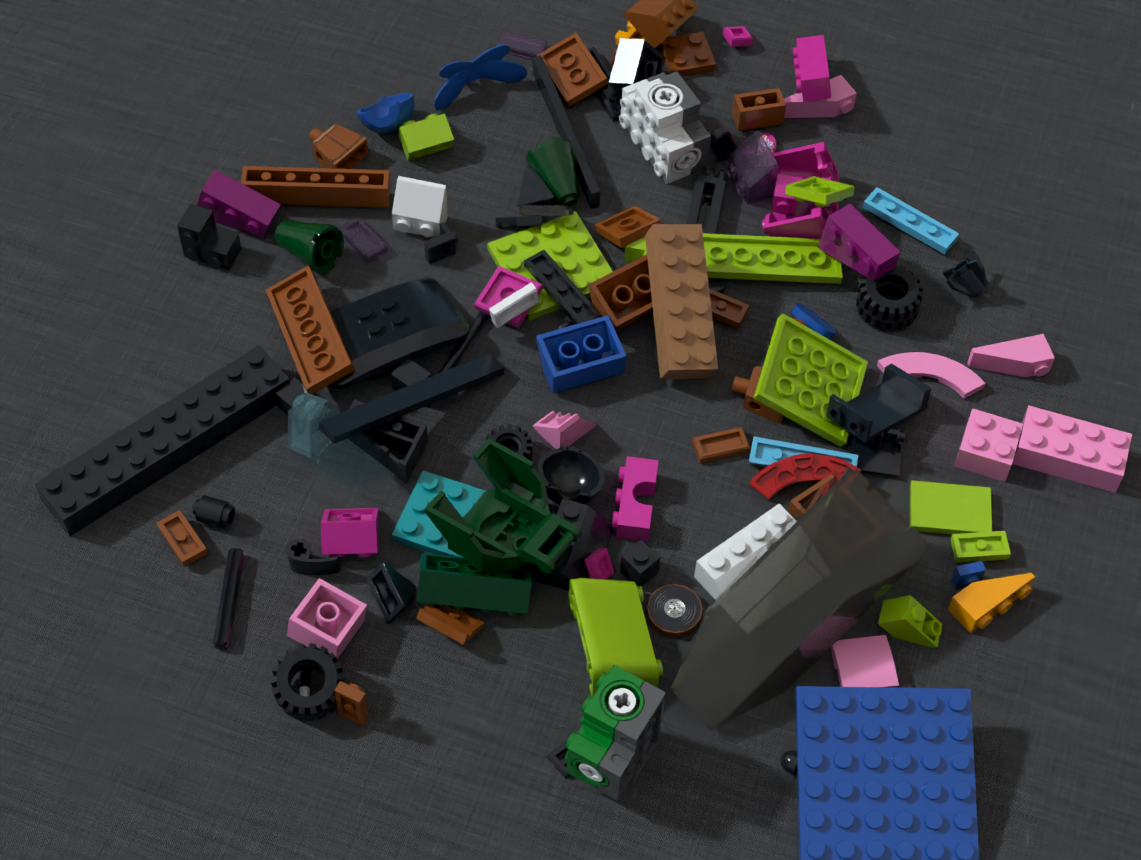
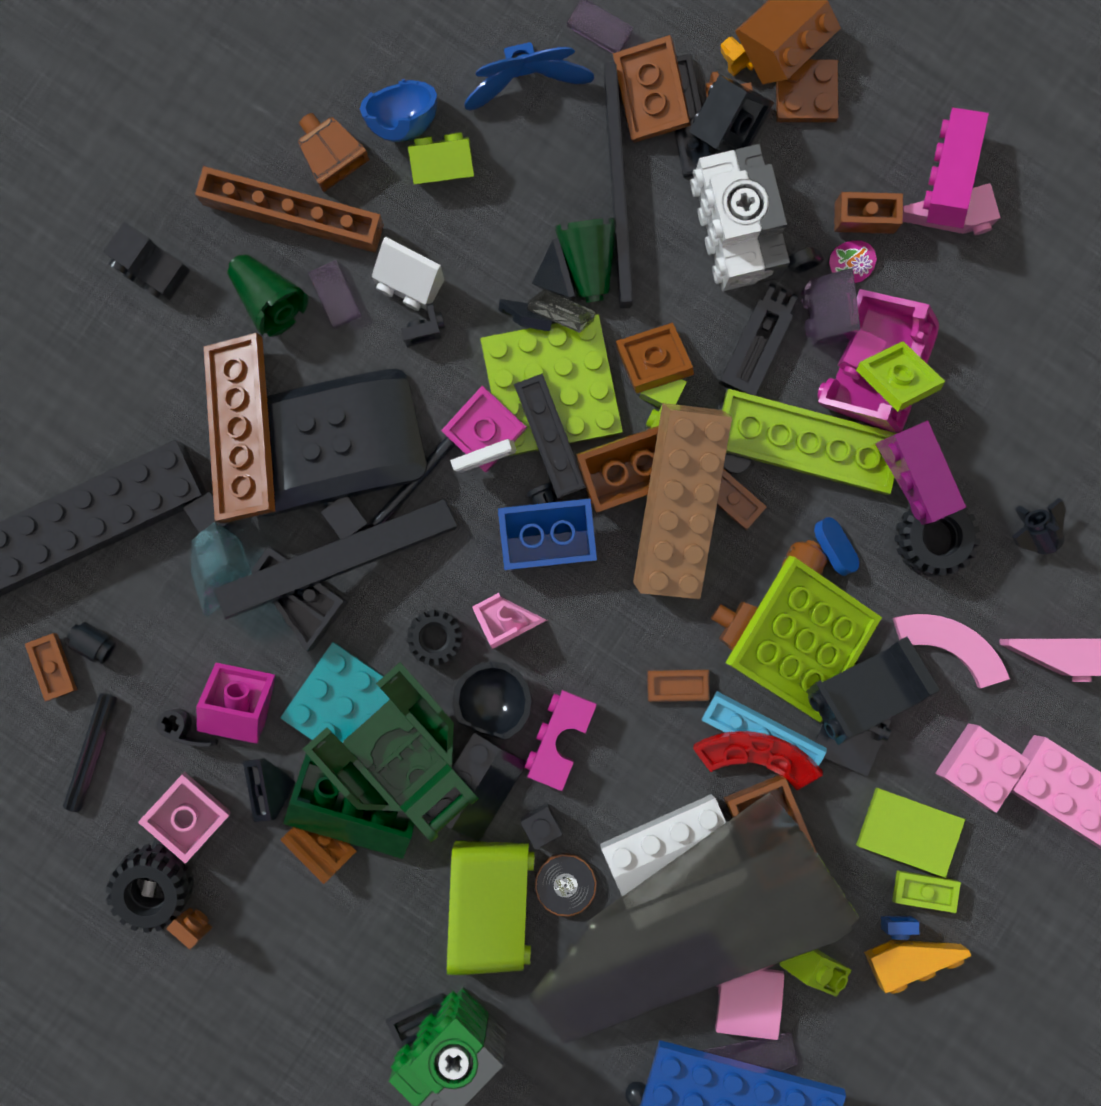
camera: 15 degrees right, 30 degrees up
(238, 205) = (189, 218): magenta wedge -> none
(599, 564) = (496, 818): dark pink tile -> none
(737, 36) = (879, 77): dark pink tile -> none
(910, 220) = (1002, 424): medium azure plate -> none

